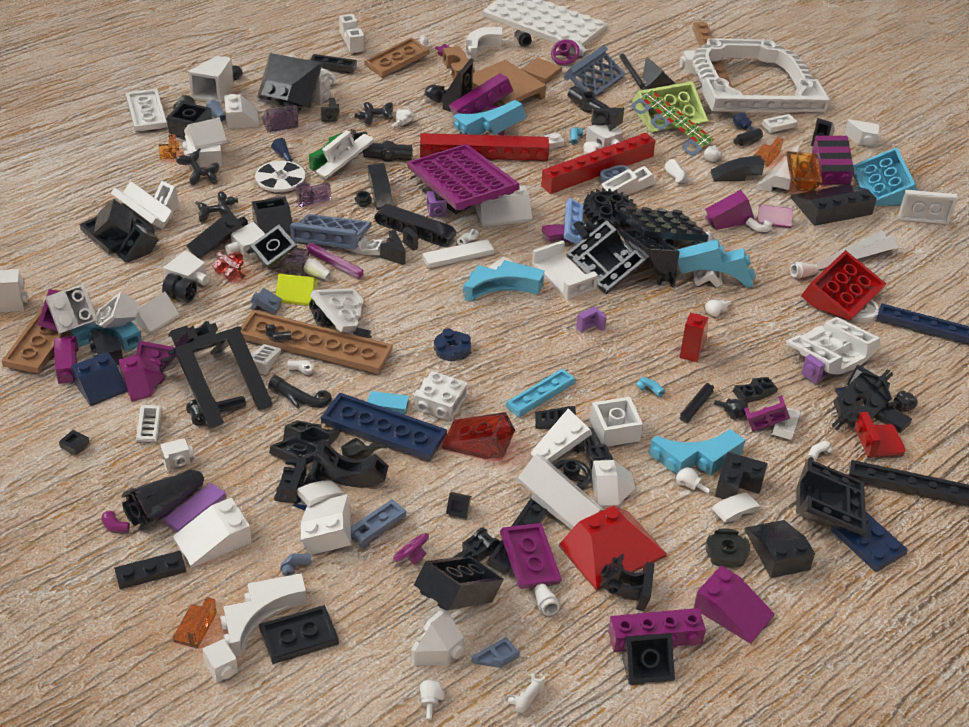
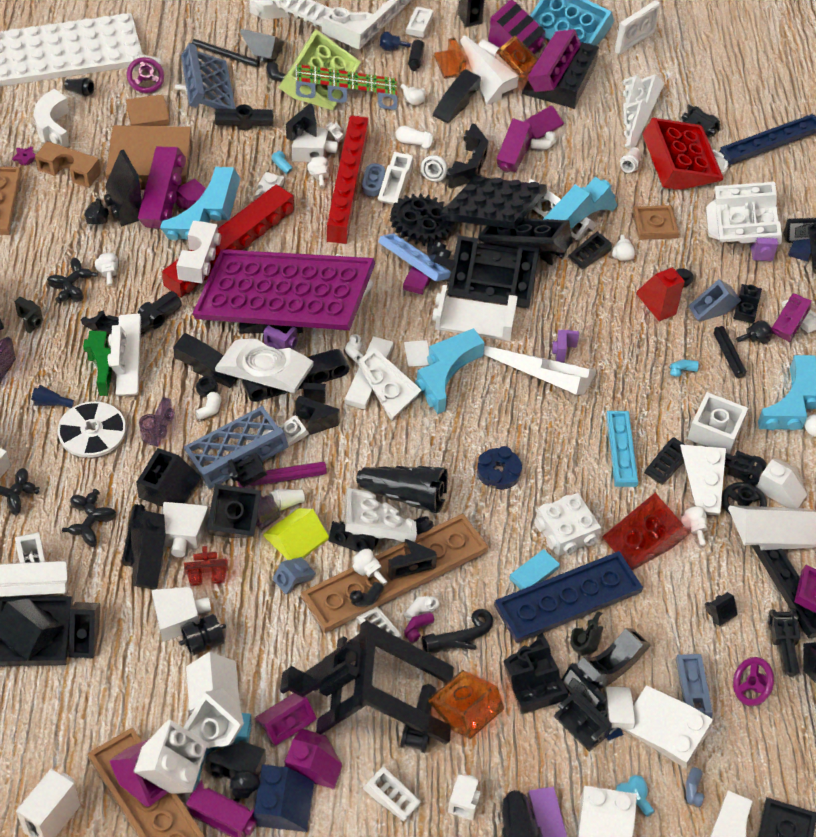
camera: 50 degrees left, 10 degrees up
(87, 351) = (244, 784): none -> black piece
(244, 420) = (467, 703): none -> clear orange slope
(261, 535) = (638, 786): none -> medium azure rock
(285, 369) = (411, 631): none -> magenta arm
(299, 321) = (368, 565): none -> white piece
(312, 240) = (247, 470): none -> black bracket
(322, 338) = (416, 560): none -> black slope
(350, 208) = (211, 408): none -> white arm
(385, 312) = (416, 486): none -> black cone
(401, 205) = (265, 365): none -> white slope
(437, 138) = (195, 264): none -> white arch
(455, 262) = (388, 382): none -> white wing
(519, 456) = (696, 521): none -> white piece
(562, 329) = (566, 376): none -> white wedge
(625, 133) = (334, 130): none -> white plate
(661, 191) = (434, 168): none -> white brick
(692, 205) = (461, 172): none -> black slope
(697, 293) = (596, 238): none -> black slope
(731, 370) = (714, 301): none -> sand blue slope
(732, 347) = (686, 275): none -> black plate
(765, 310) = (655, 222): none -> medium nougat tile
(828, 184) = (554, 60): none -> magenta brick
(893, 286) = (696, 115): none -> black hinge

